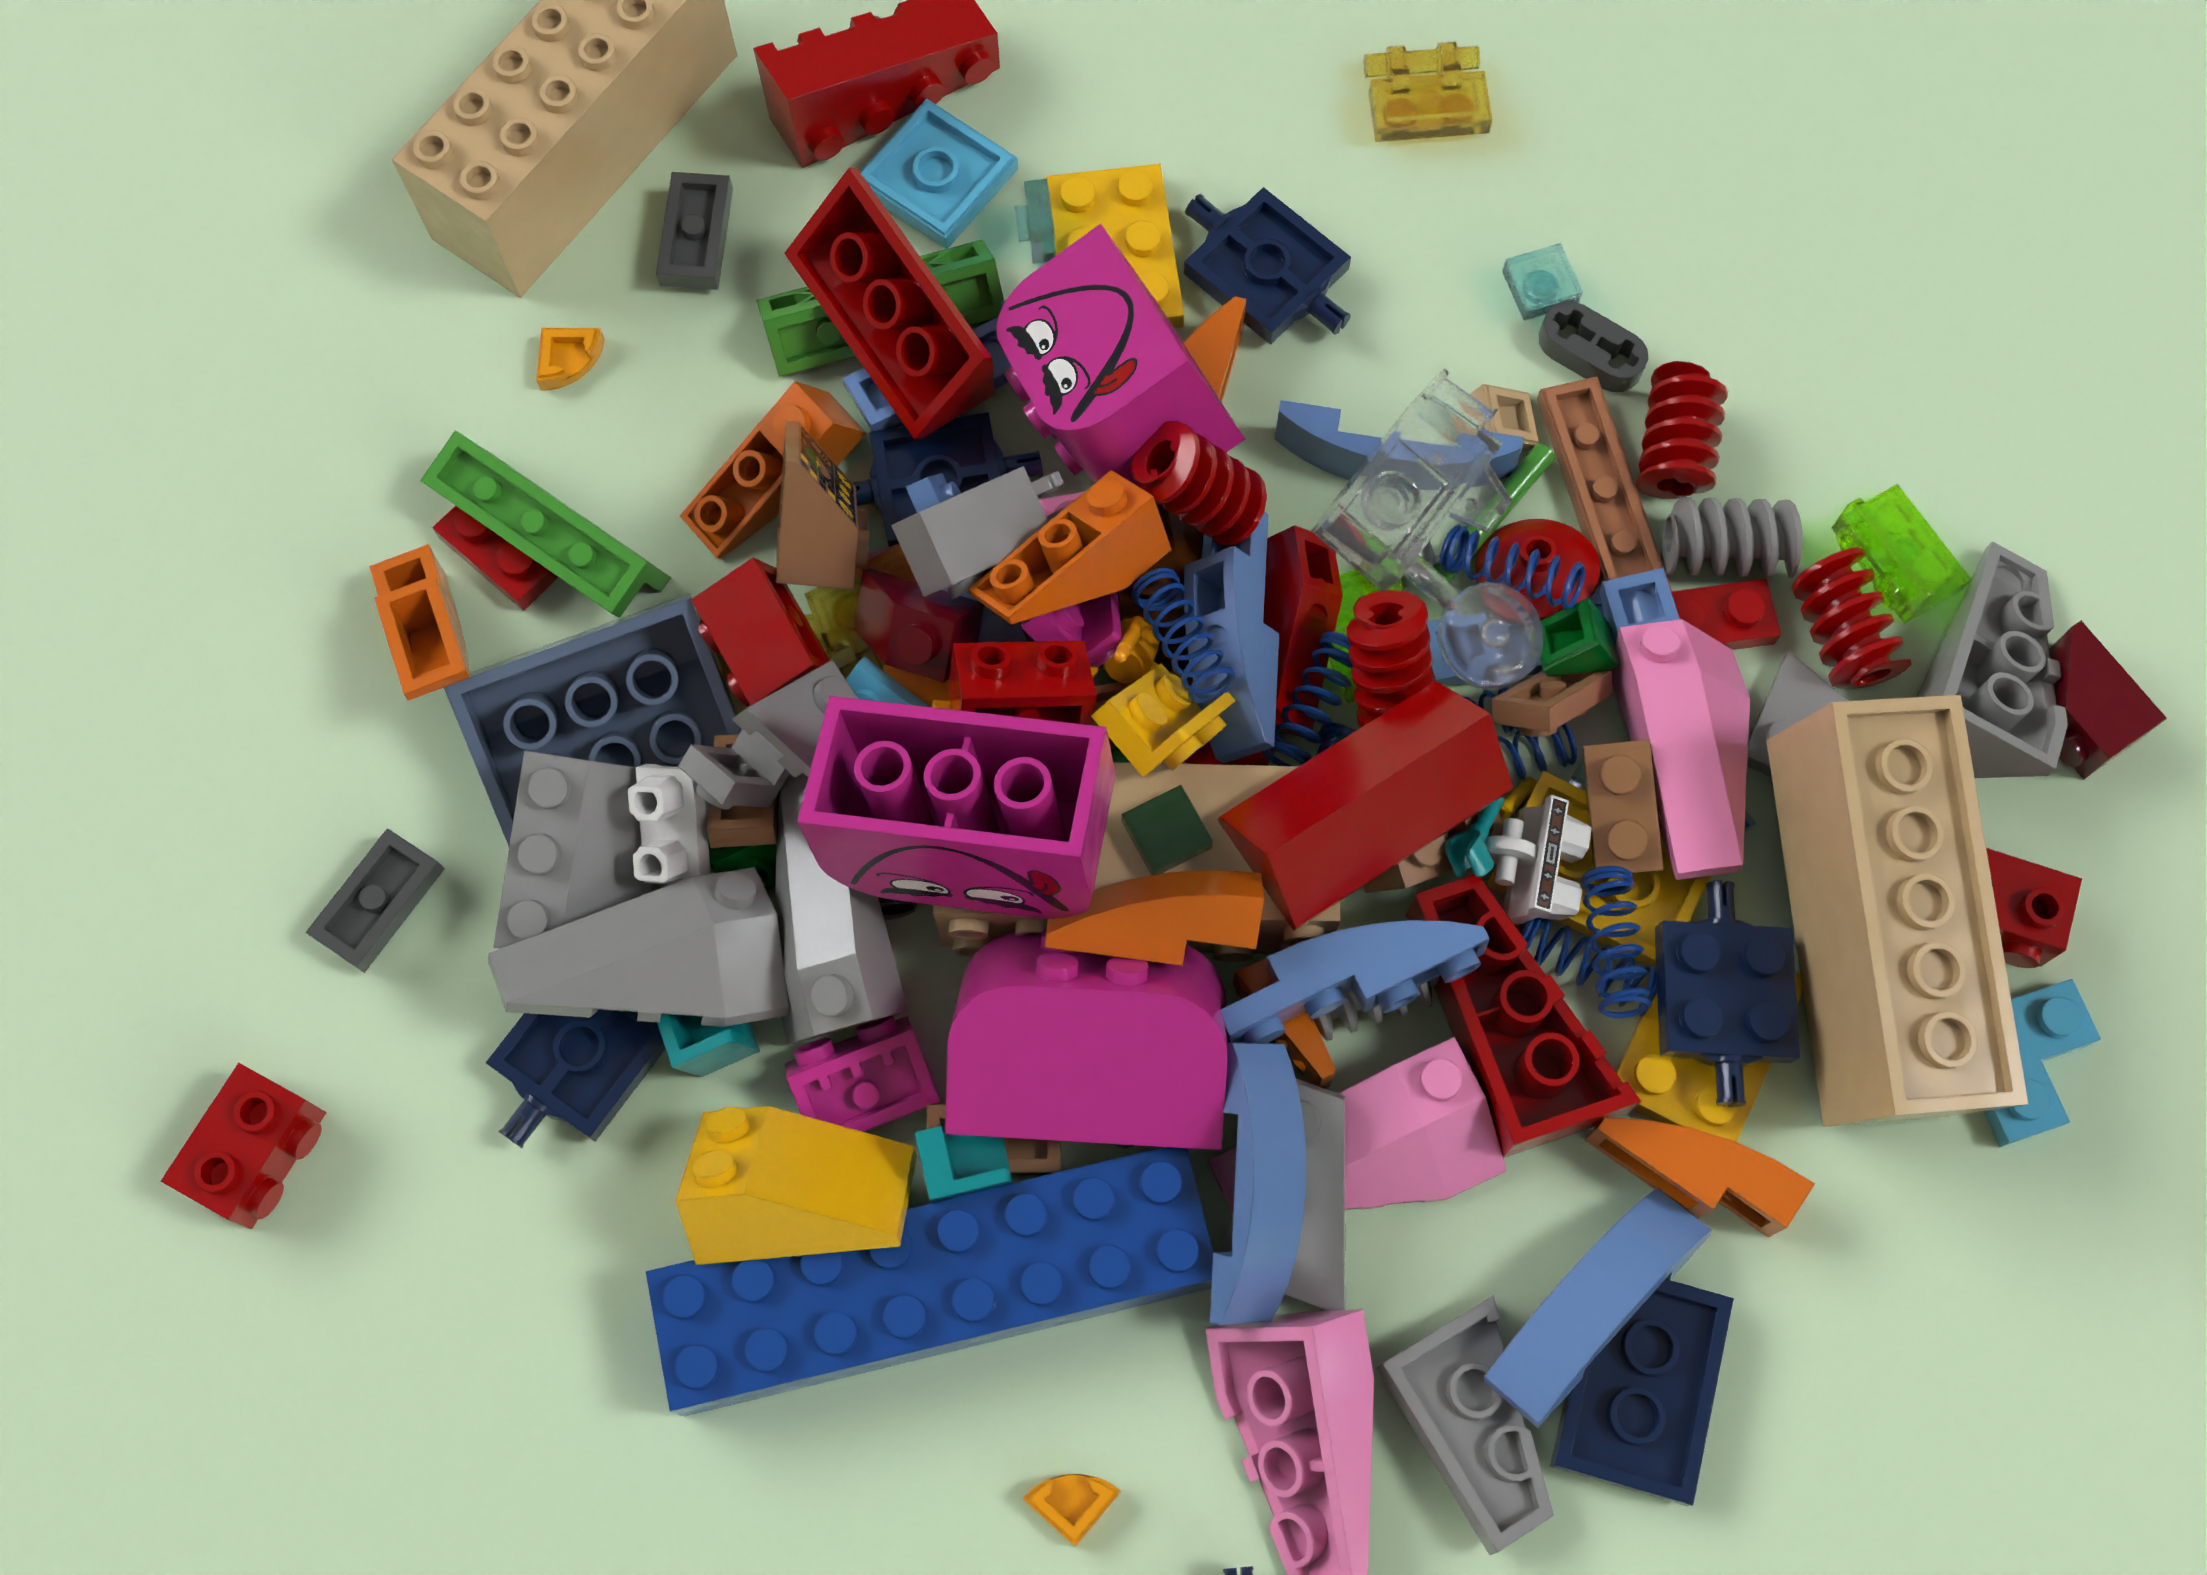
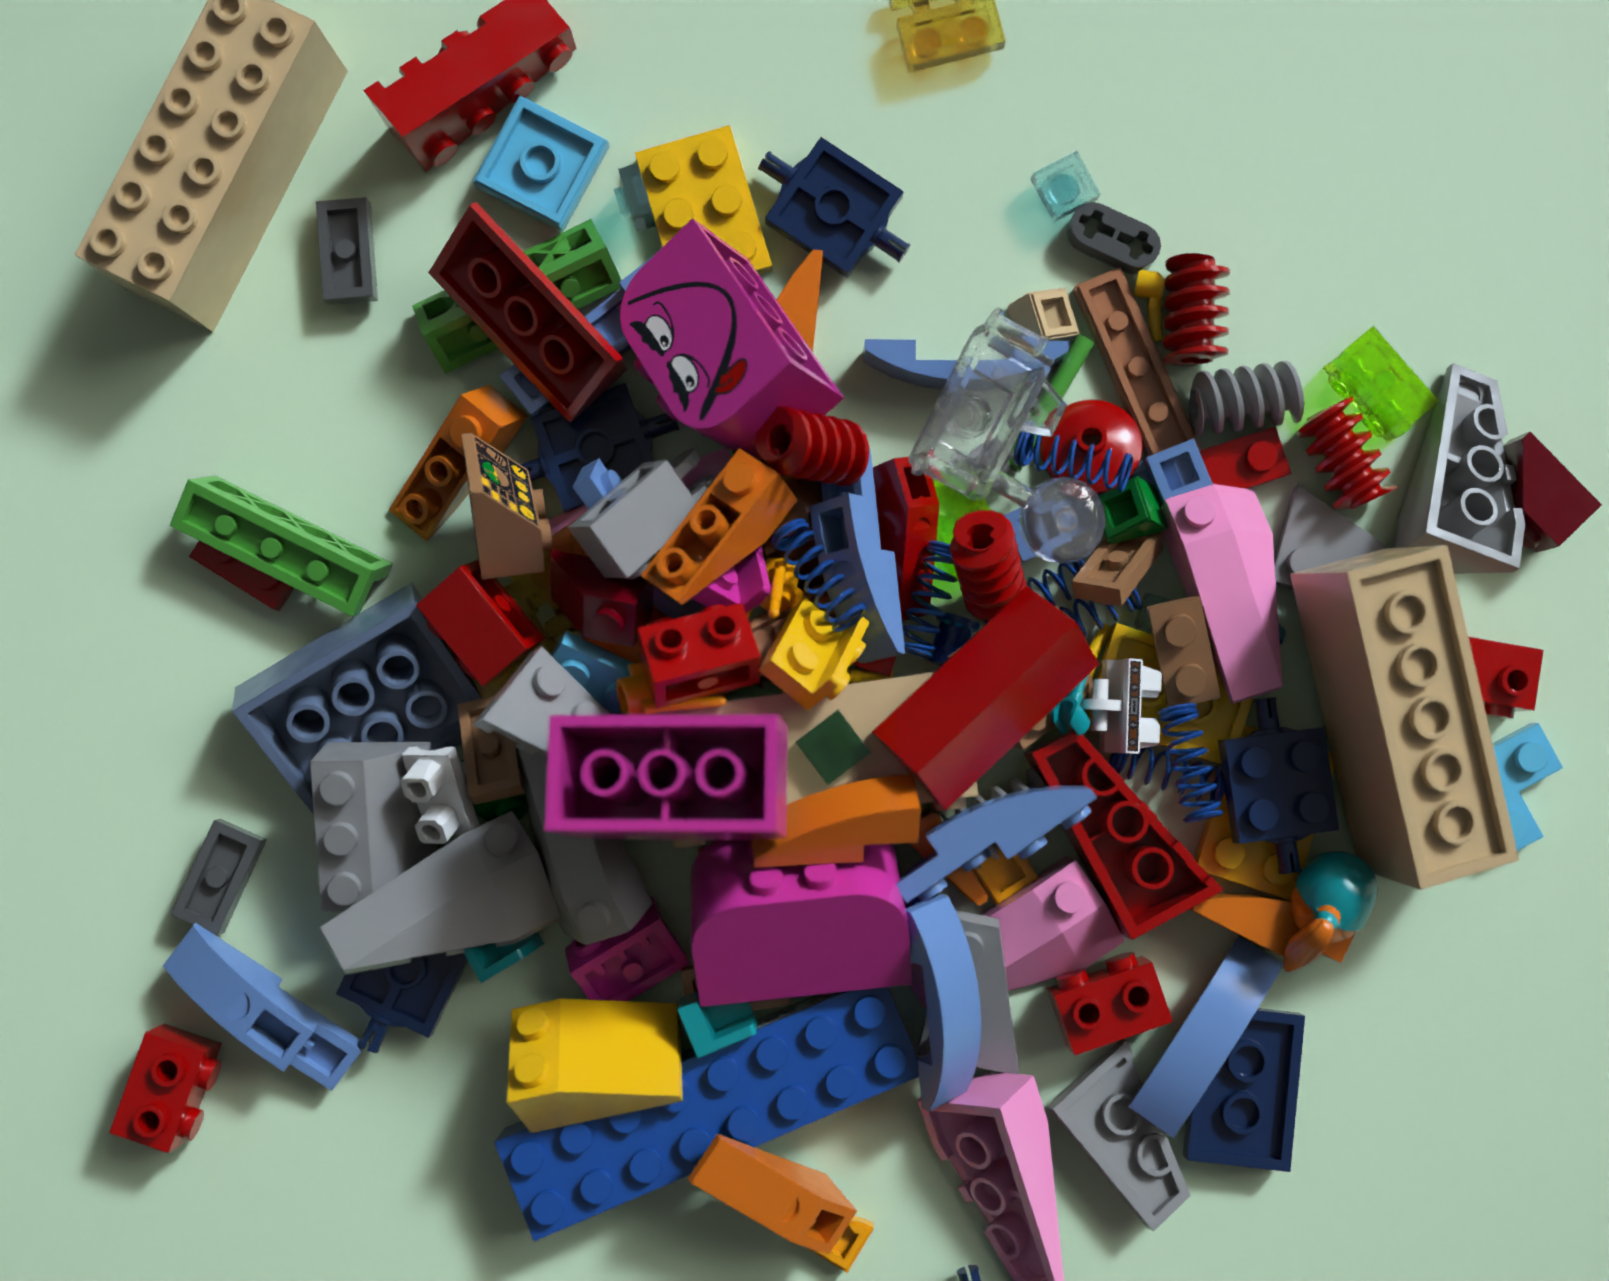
camera: 15 degrees left, 15 degrees up
(389, 1066) = (257, 1011): none -> medium blue slope
(420, 622) = (200, 651): orange slope -> none
(567, 355) = (264, 381): light orange tile -> none
(736, 775) = (479, 755): light grey bracket -> none
(995, 1397) = (775, 1193): none -> orange slope
(1360, 1053) = (1004, 876): none -> light orange tile
(1474, 1239) = (1108, 1003): none -> red brick
(1630, 402) = (1151, 286): none -> yellow hand
(1778, 1147) = (1329, 904): none -> teal hair

